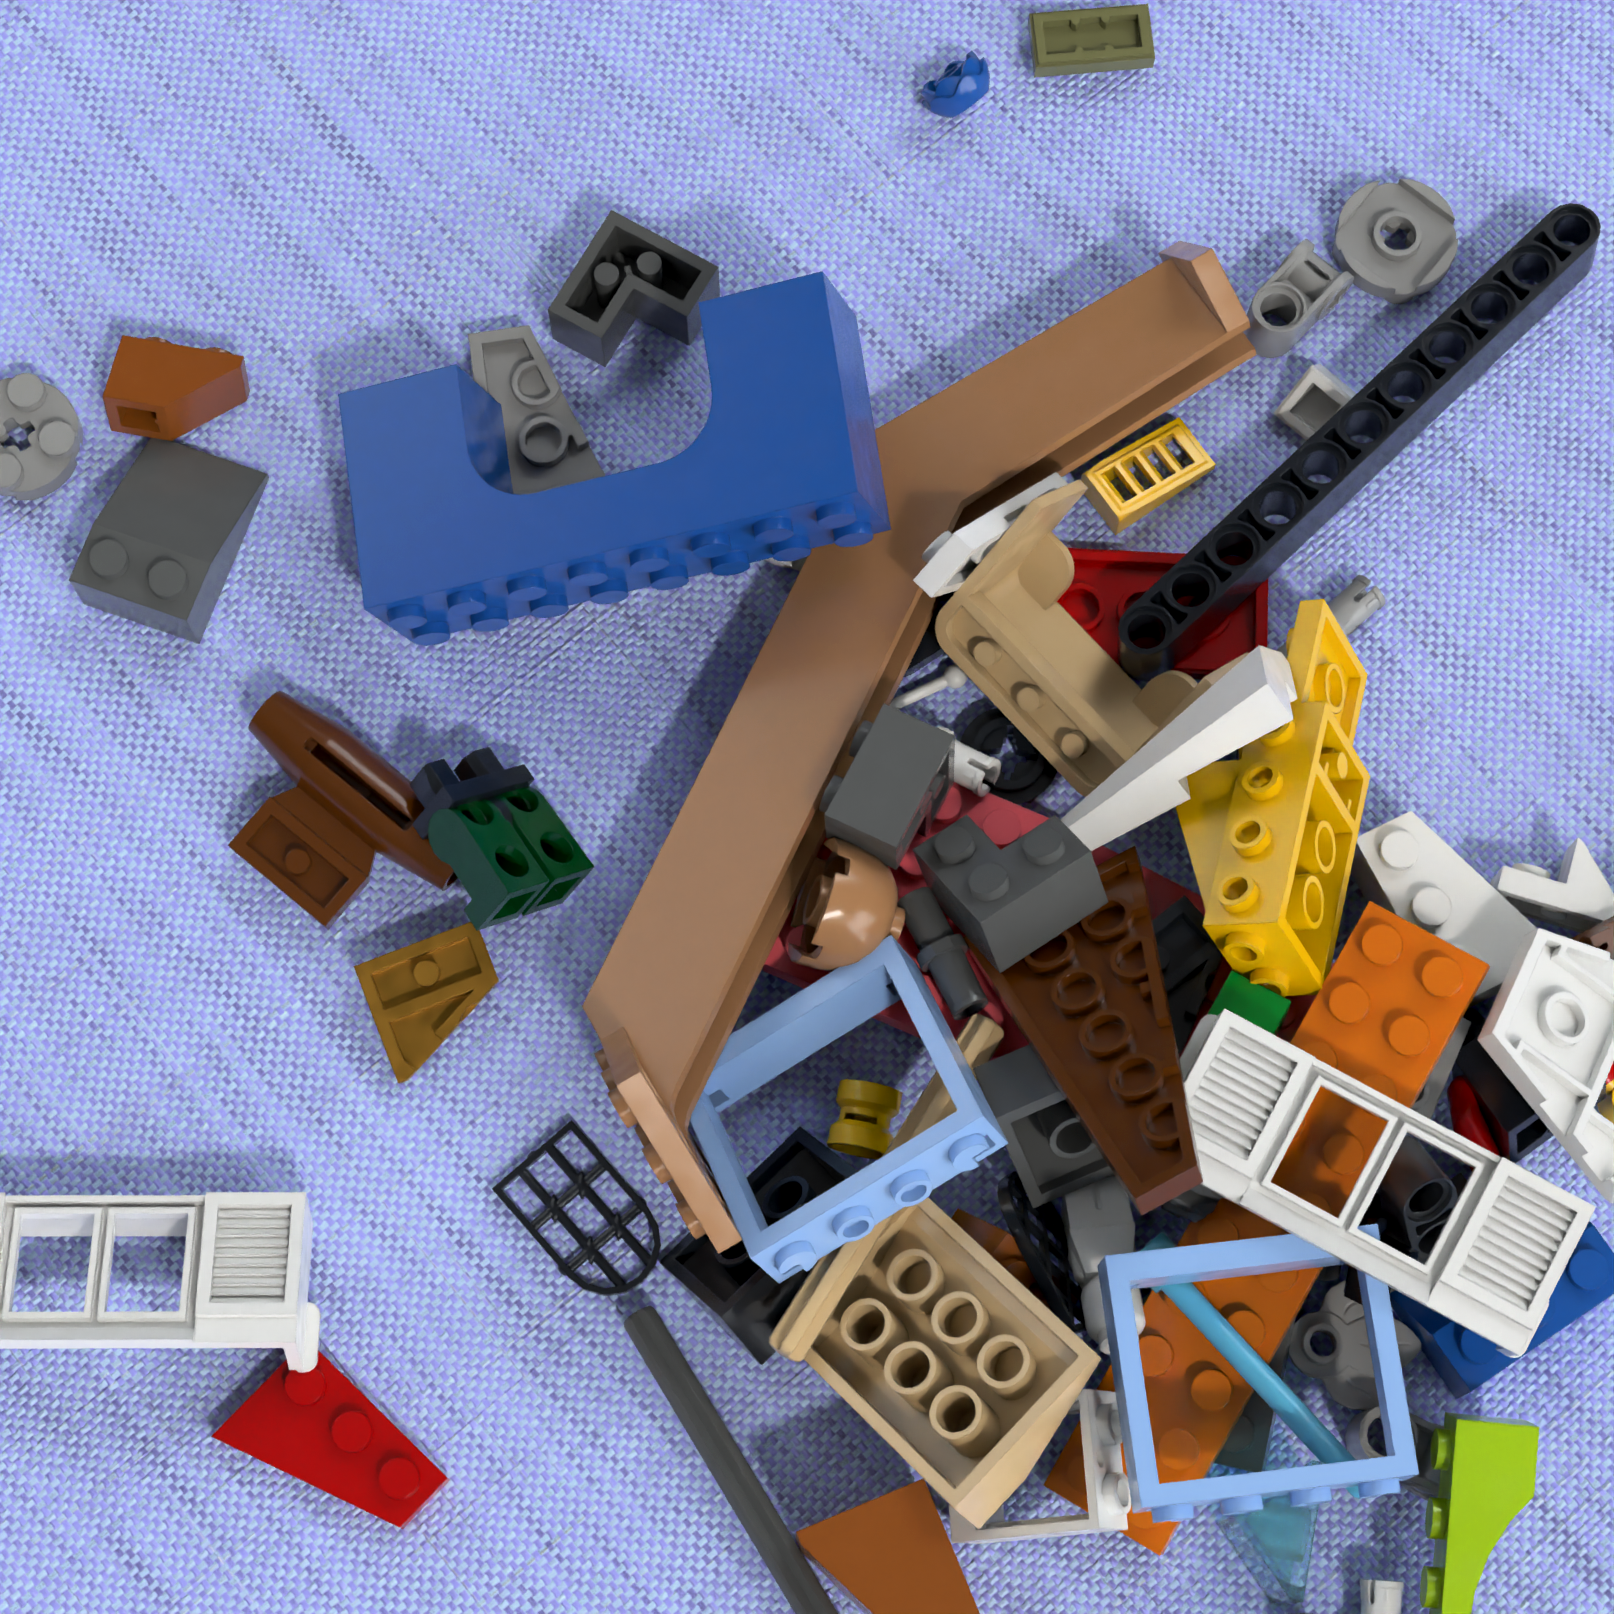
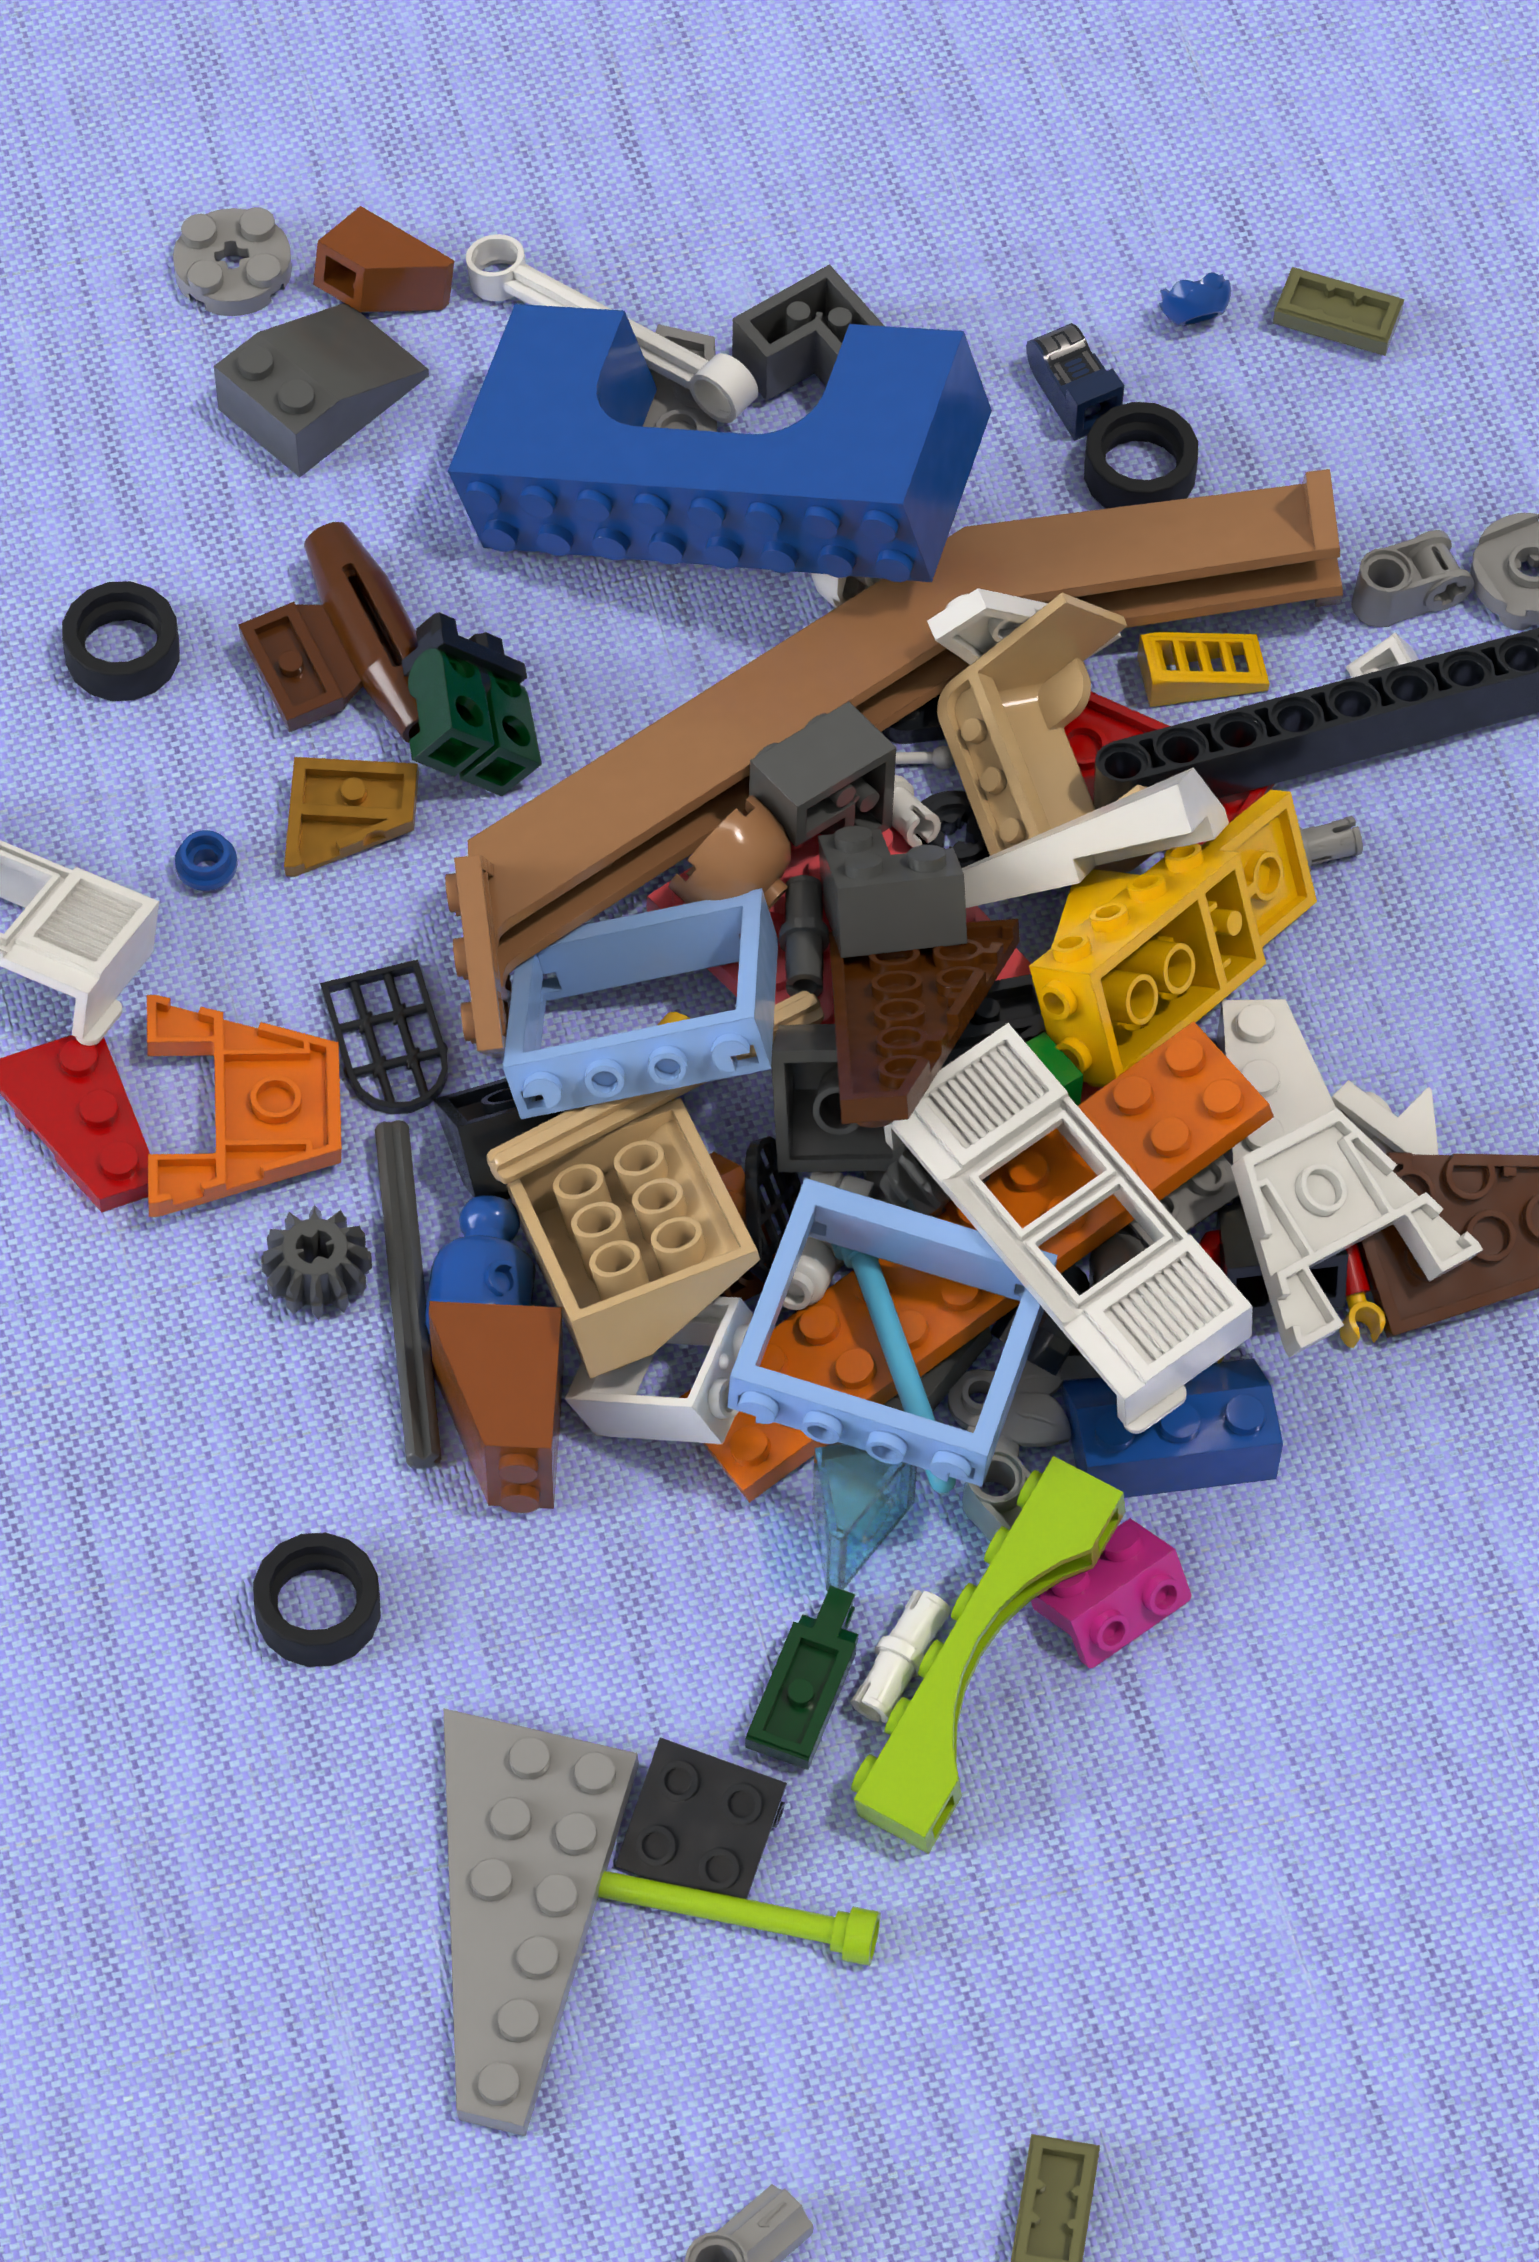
camera: 25 degrees right, 15 degrees down
(96, 866) = (120, 603): none -> black tyre
(308, 1093) = (201, 847): none -> blue plate
(514, 1348) = (271, 1106): none -> orange wing
(563, 383) = (718, 386): none -> white piece
(625, 1482) = (316, 1262): none -> dark grey gear
(812, 1452) = (484, 1262): none -> blue piece
(885, 220) = (1073, 378): none -> dark blue leg
(987, 236) = (1145, 424): none -> black tyre
(1565, 1473) = (1120, 1598): none -> dark pink bracket

